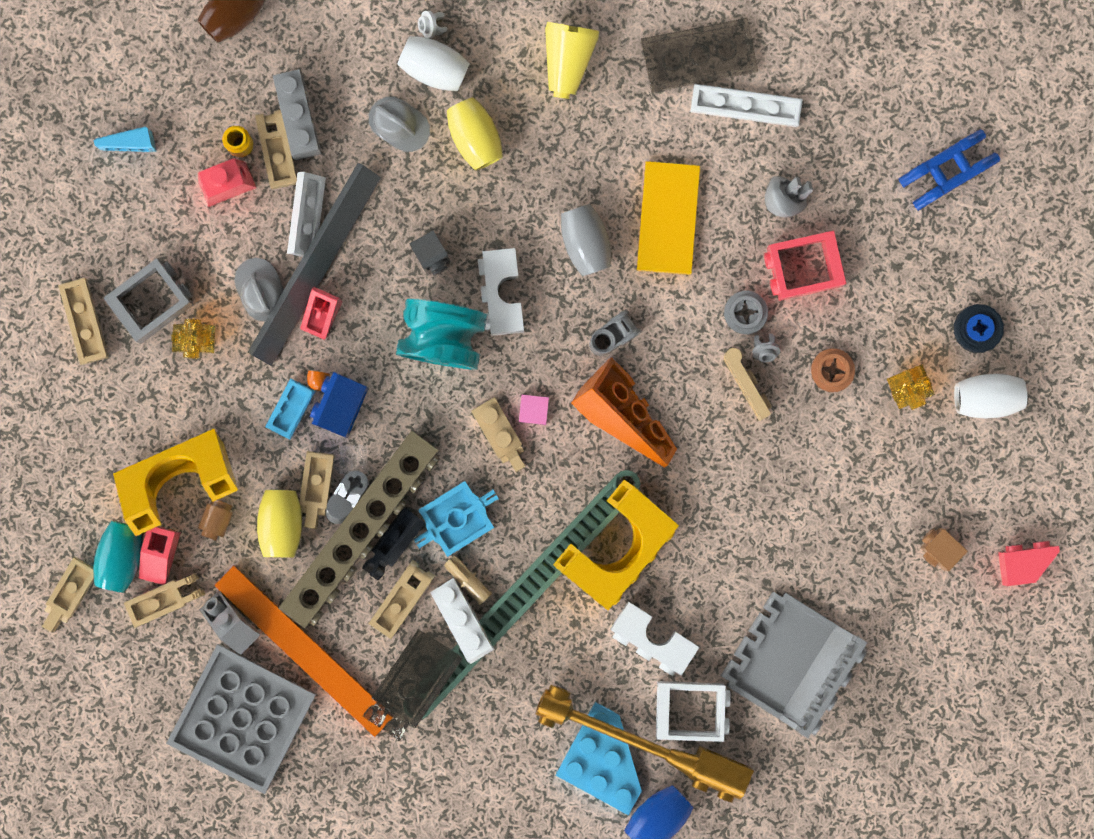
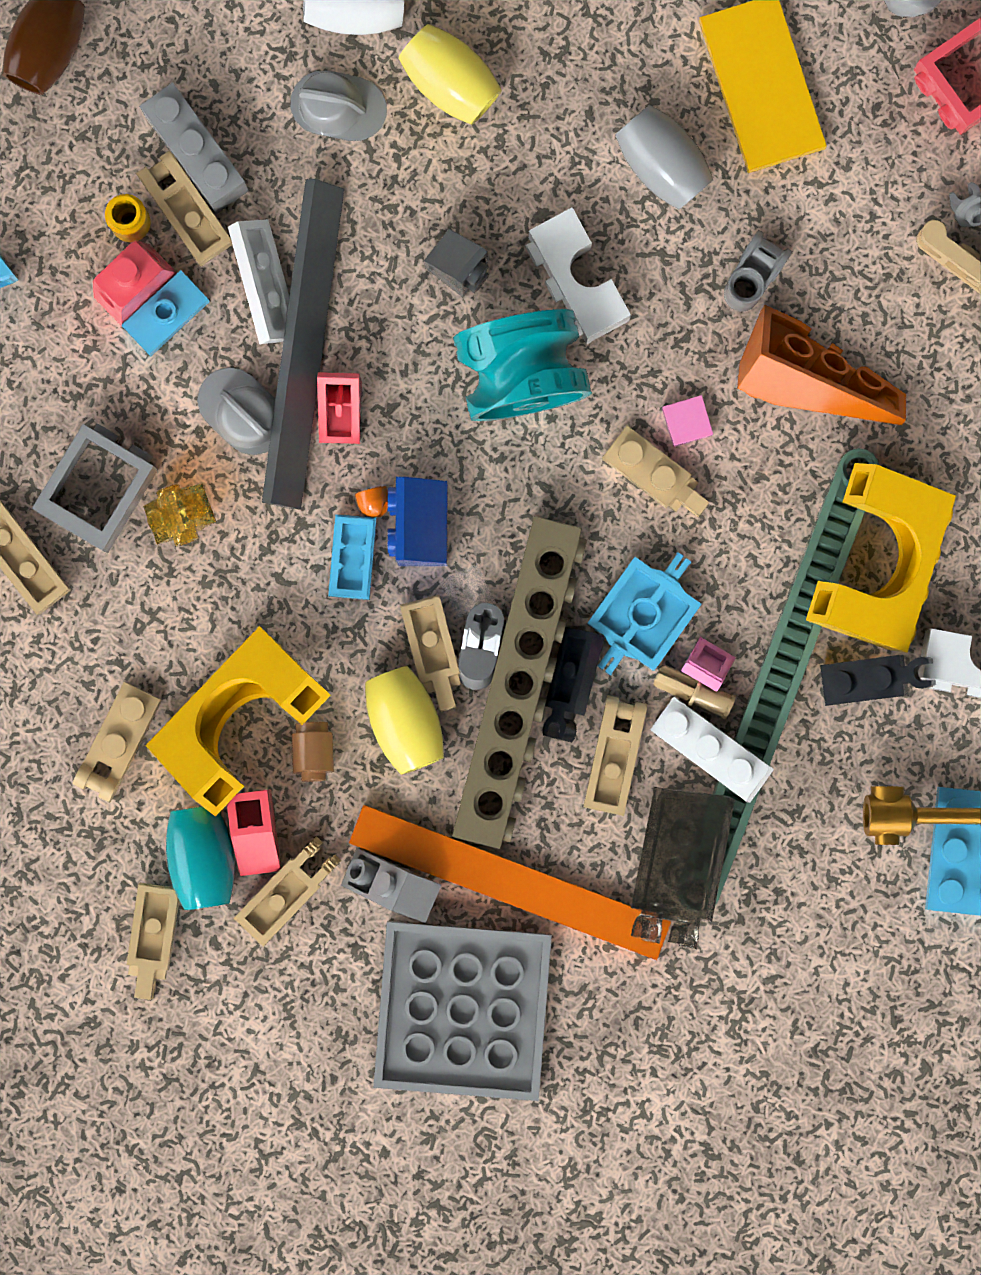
camera: 20 degrees left, 0 degrees up
(98, 462) = (118, 740): none -> tan plate
(238, 209) = (165, 313): none -> medium azure plate
(483, 566) = (708, 664): none -> bright pink tile
(580, 618) = (872, 679): none -> black plate
(753, 302) = (927, 150): light grey gear -> none

